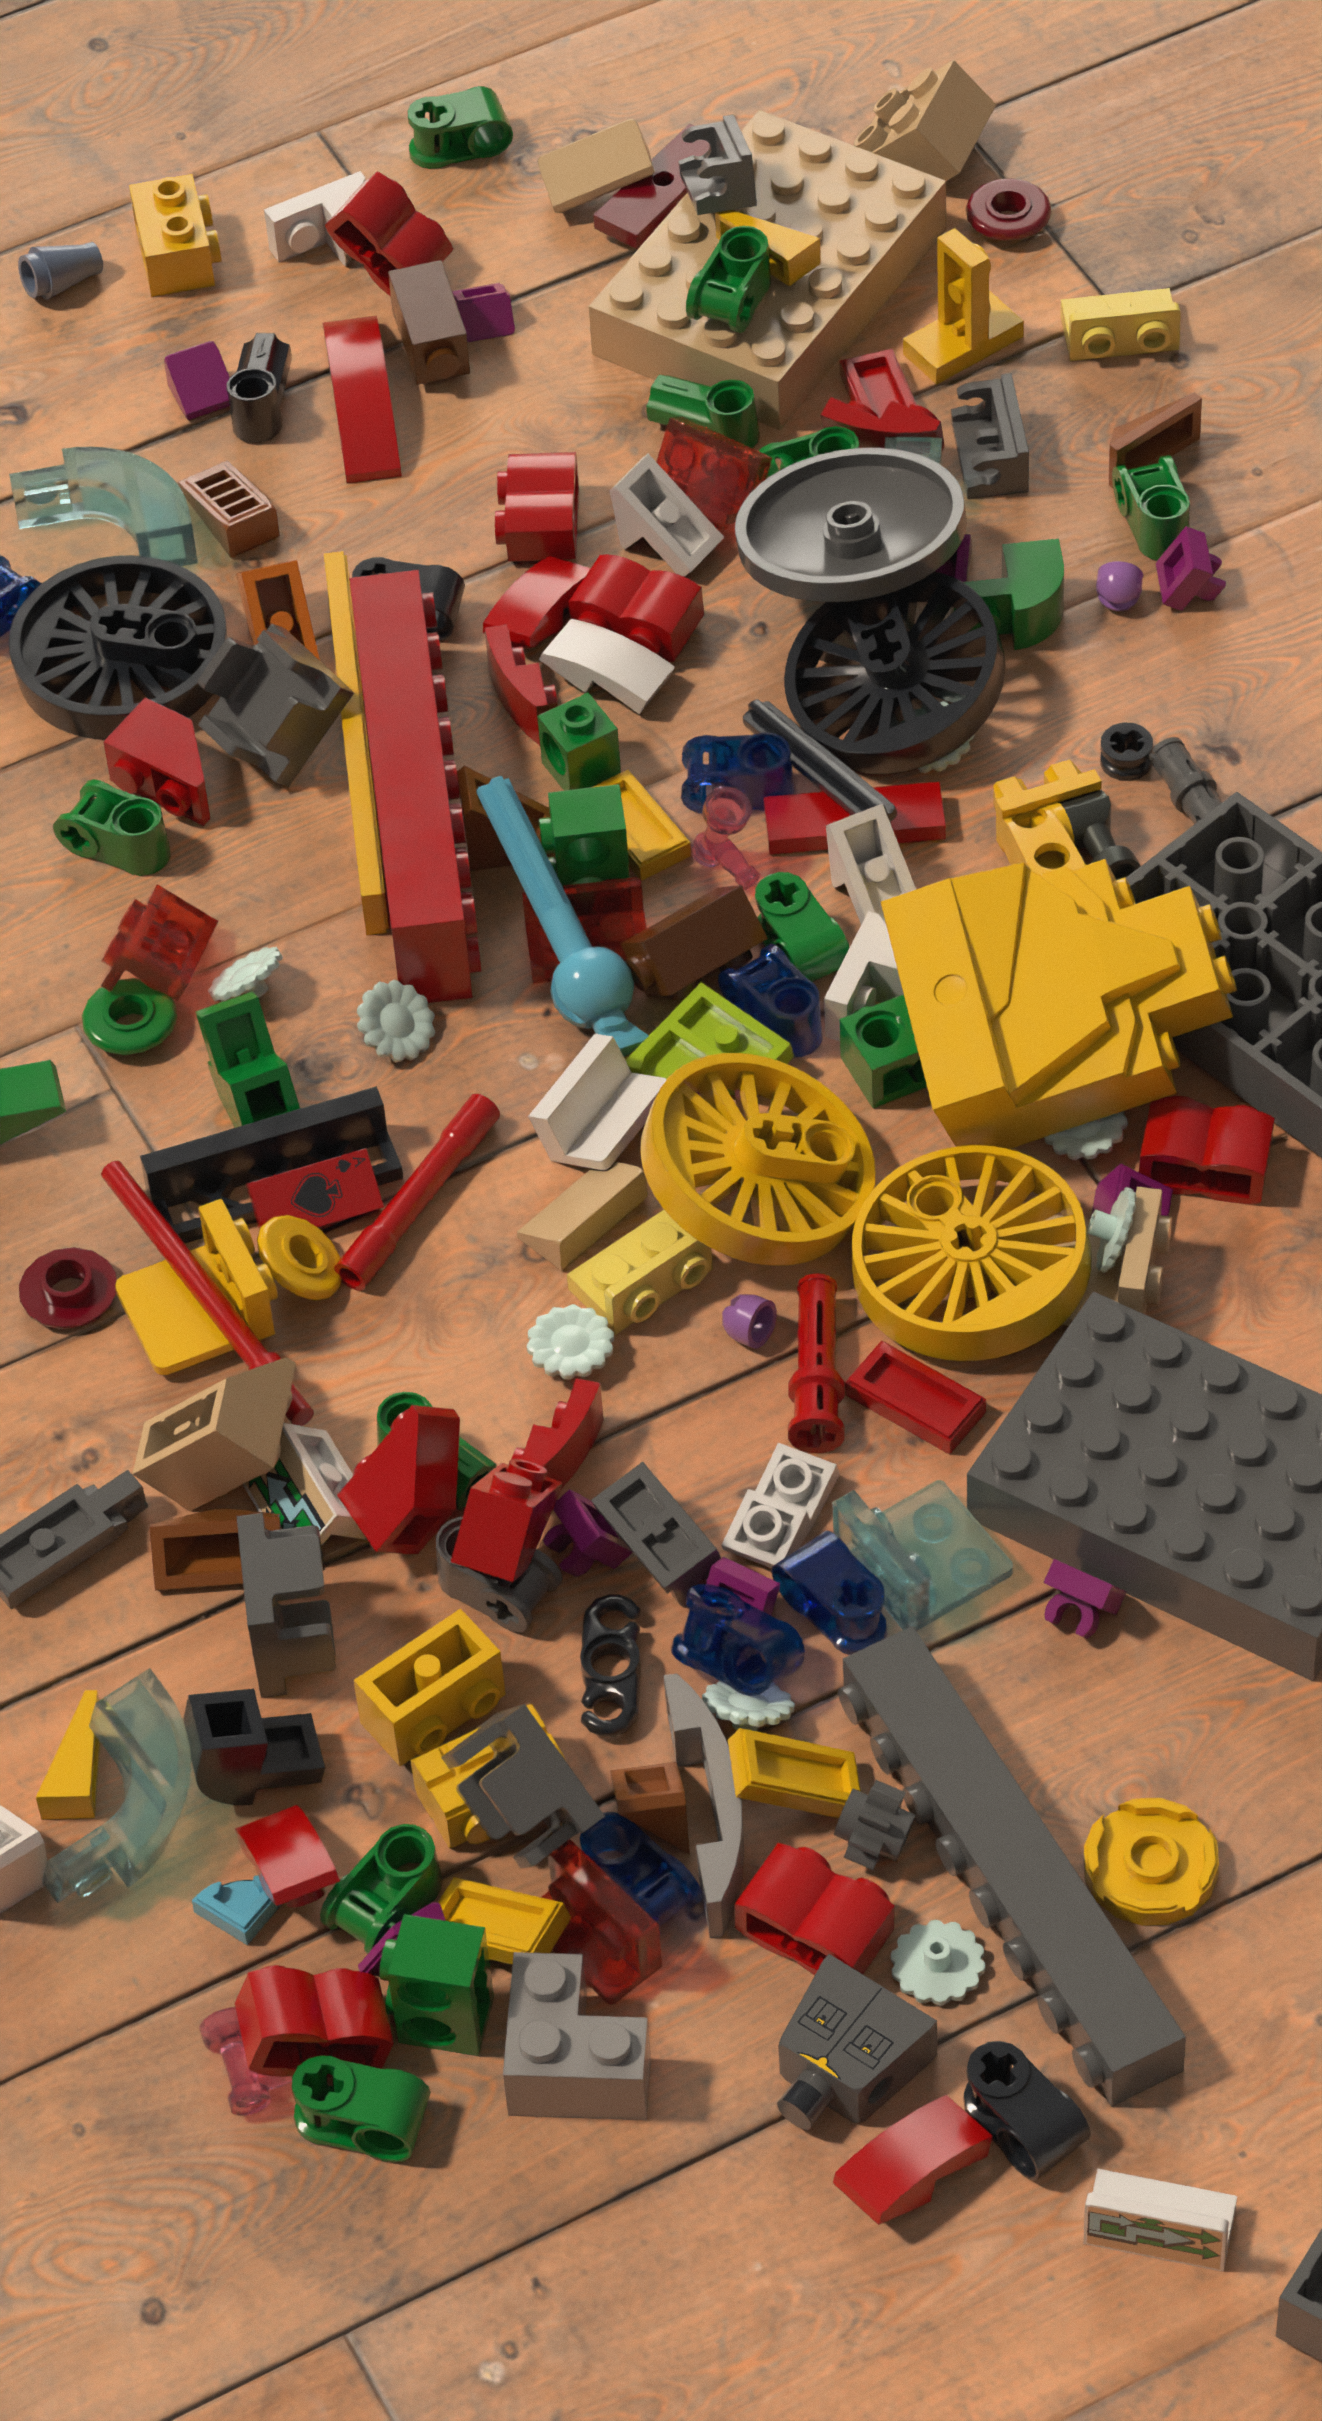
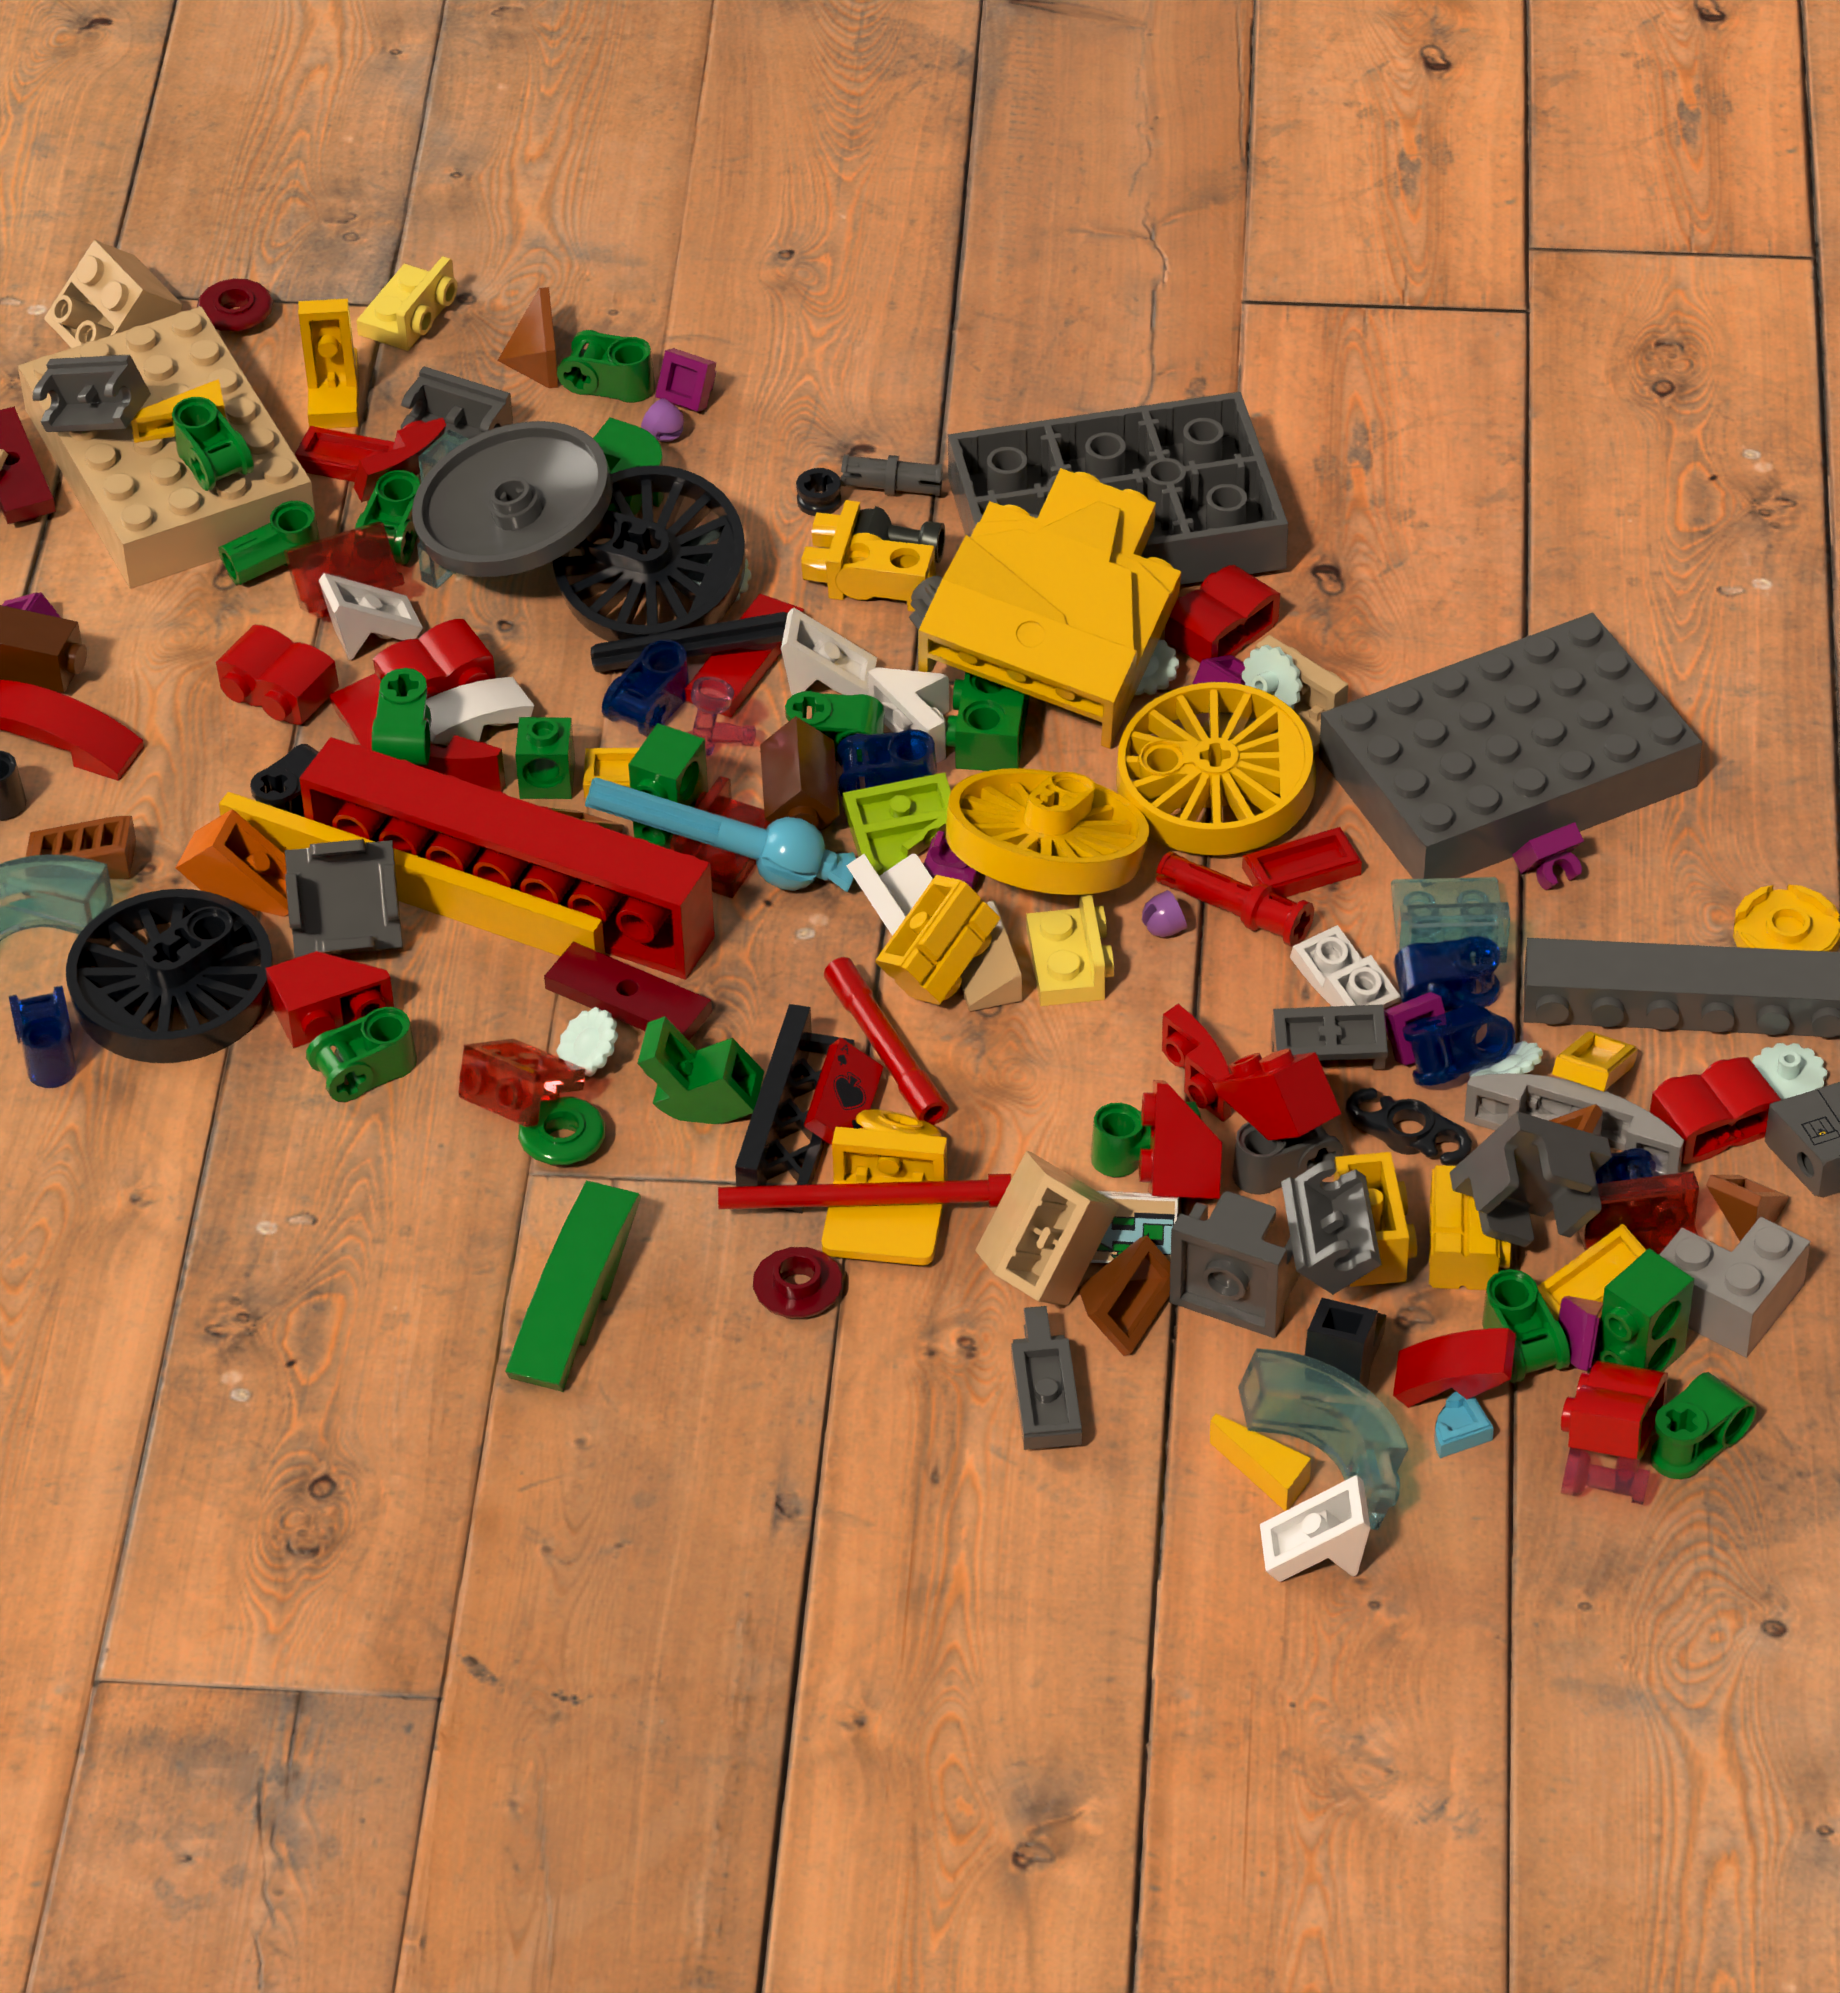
camera: 60 degrees left, 5 degrees down
(329, 970) = (625, 991): none -> dark red tile
(345, 1645) = (1331, 1226): none -> dark grey hinge
(395, 1021) = (713, 978): light aqua piece -> none
(497, 616) = (403, 717): none -> green piece
(544, 1155) = (938, 940): none -> yellow brick
(570, 1341) = (1104, 1017): light aqua piece -> none
(696, 2005) = (1745, 1201): none -> dark orange slope
(874, 1825) = (1667, 1041): dark grey gear -> none

